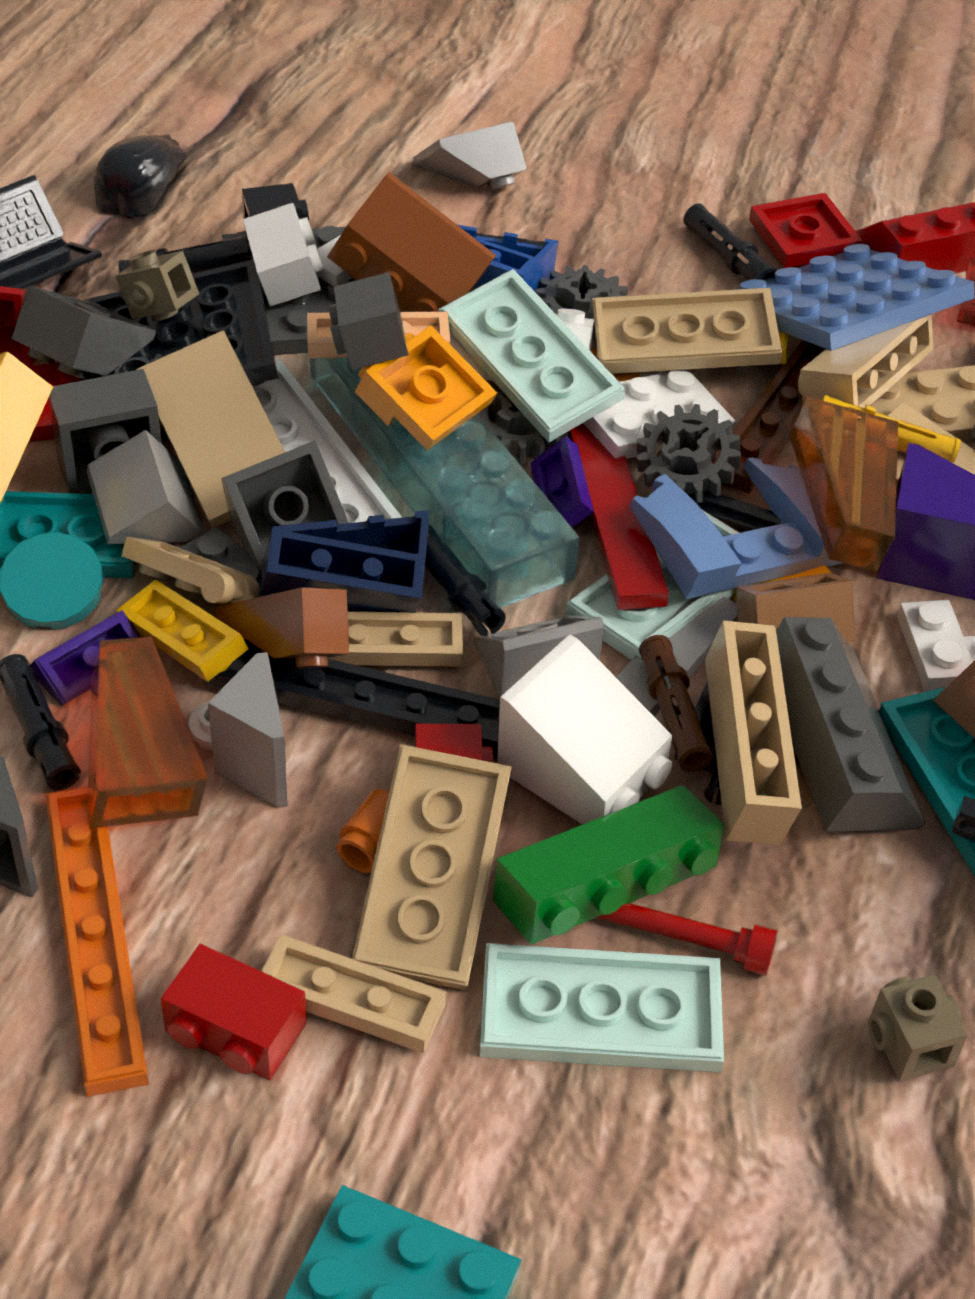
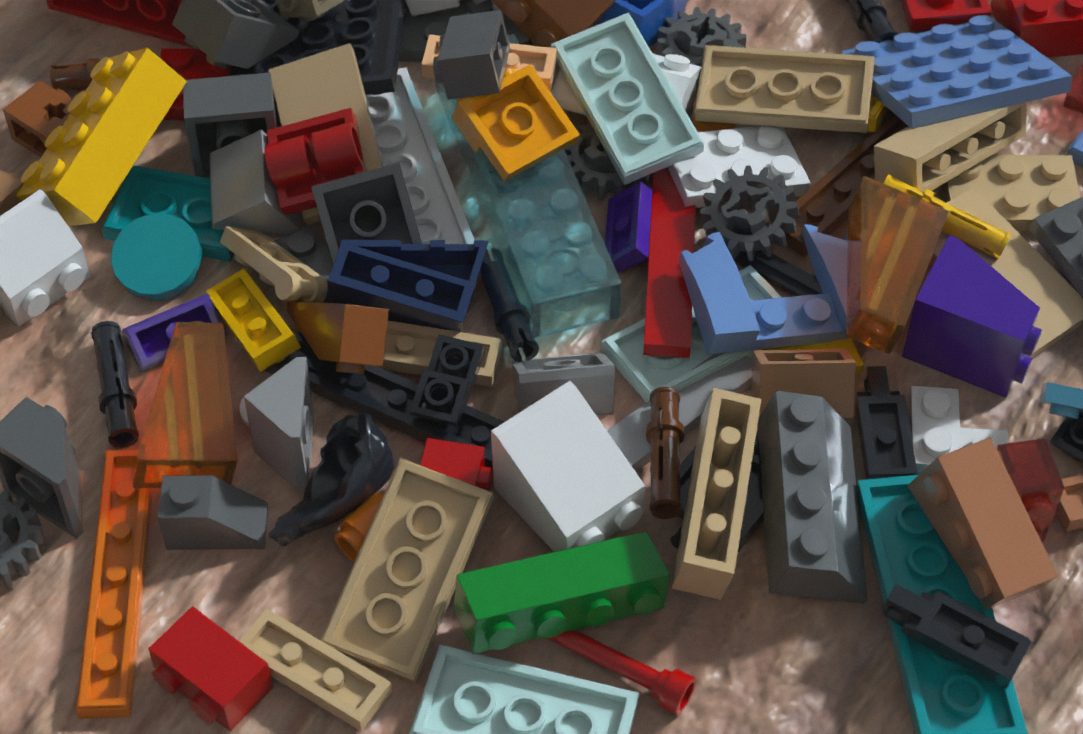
camera: 15 degrees right, 5 degrees up
(188, 844) = (210, 515): none -> dark grey slope
(209, 447) = (311, 155): none -> red plate
(335, 773) = (351, 470): none -> black hair
(419, 662) = (448, 380): none -> black slope
(889, 648) = (884, 428): none -> black hinge

